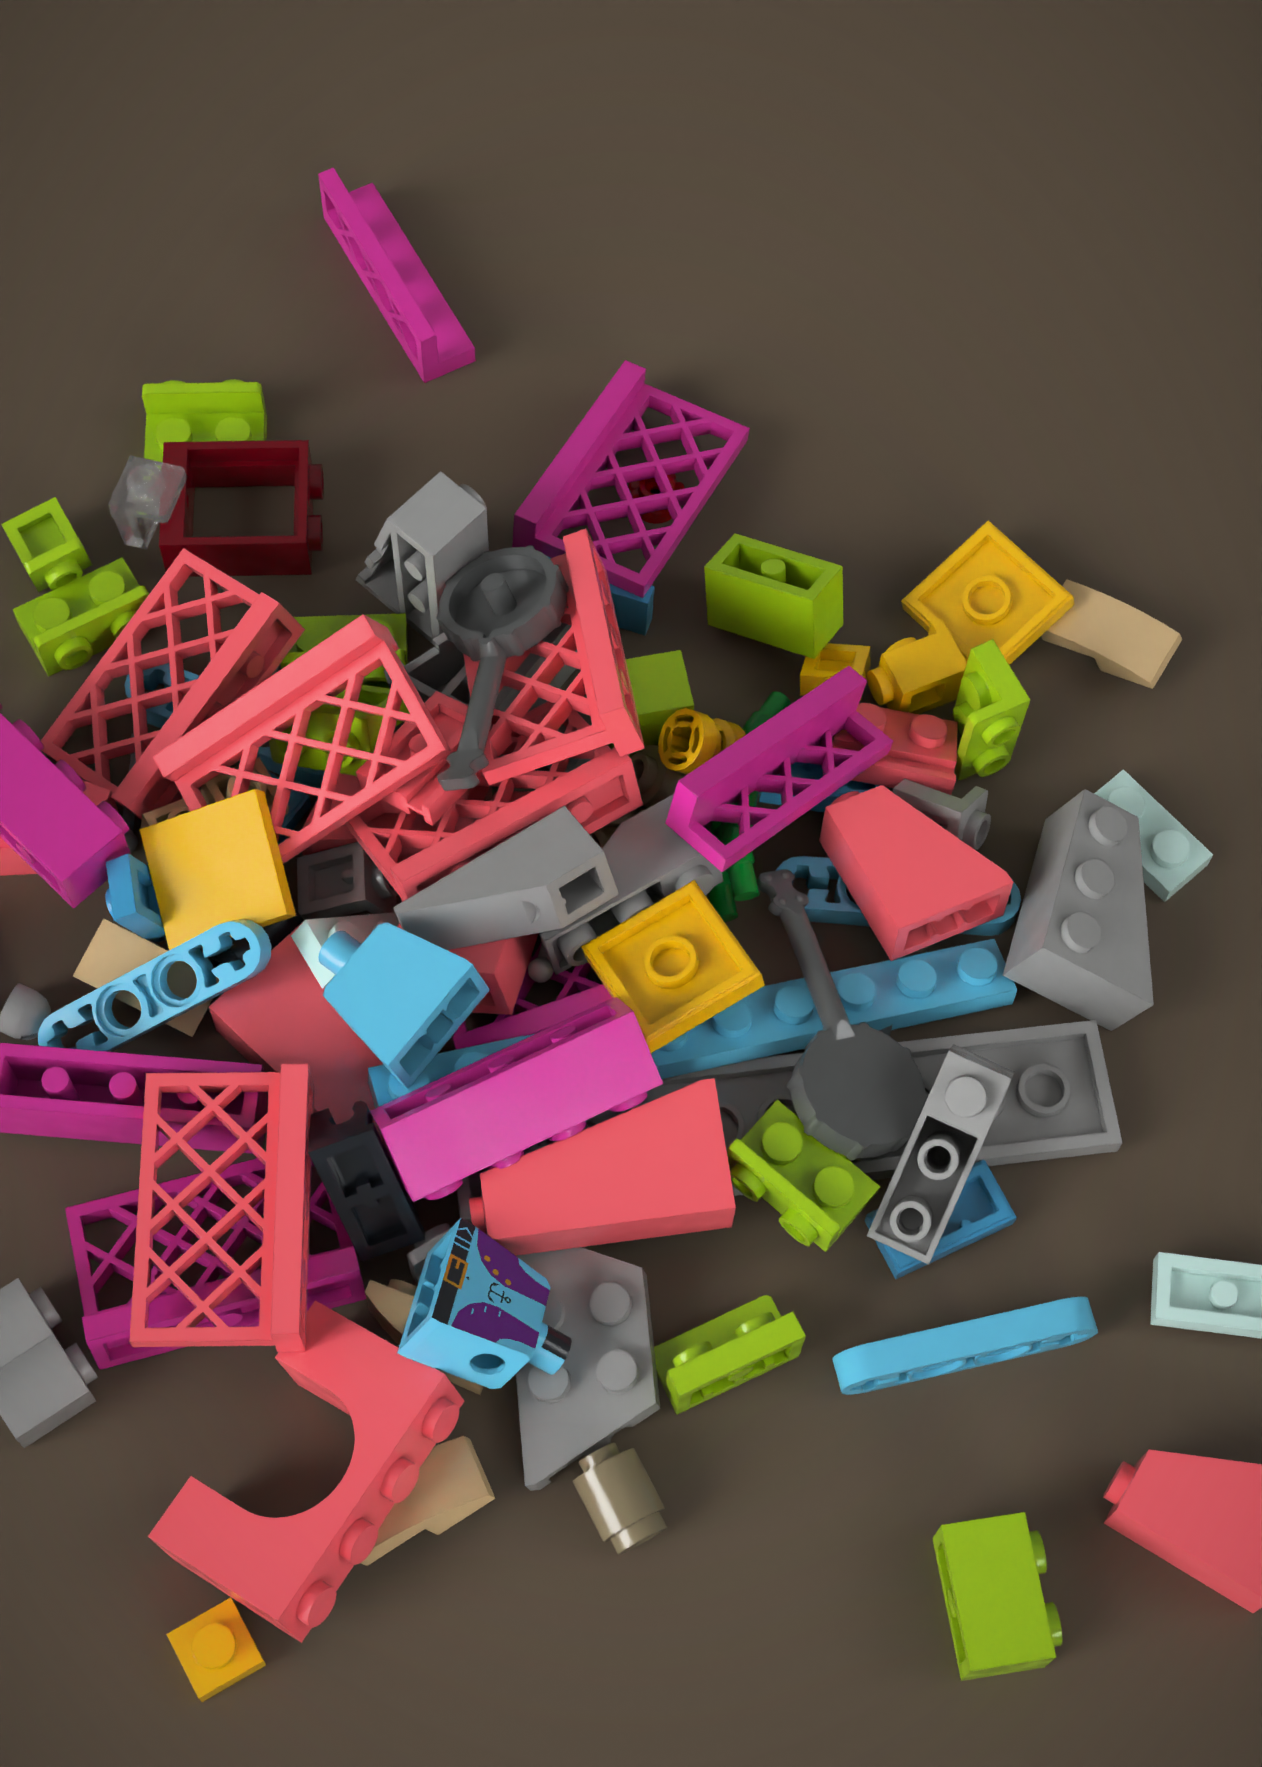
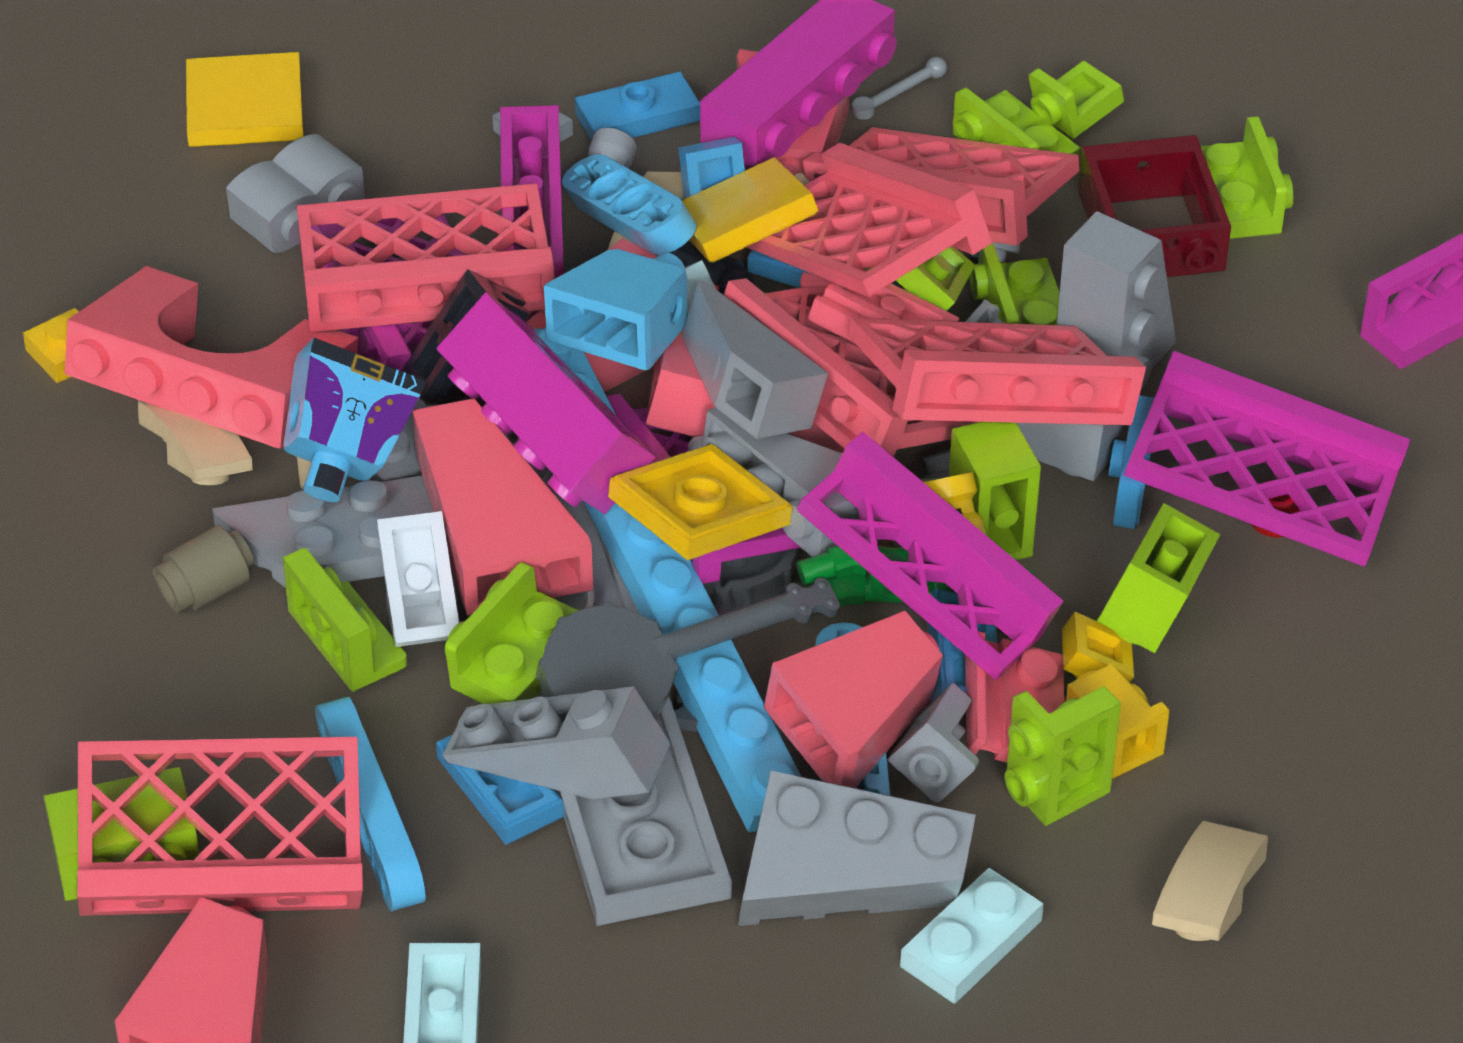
camera: 85 degrees right, 20 degrees down
(145, 498) = (1138, 128): clear bracket -> none
(491, 613) = (1014, 319): dark grey piece -> none
(696, 1268) = (417, 578): none -> white slope
(988, 594) = (1219, 773): yellow tile -> none
(1079, 1491) = (247, 883): none -> coral fence

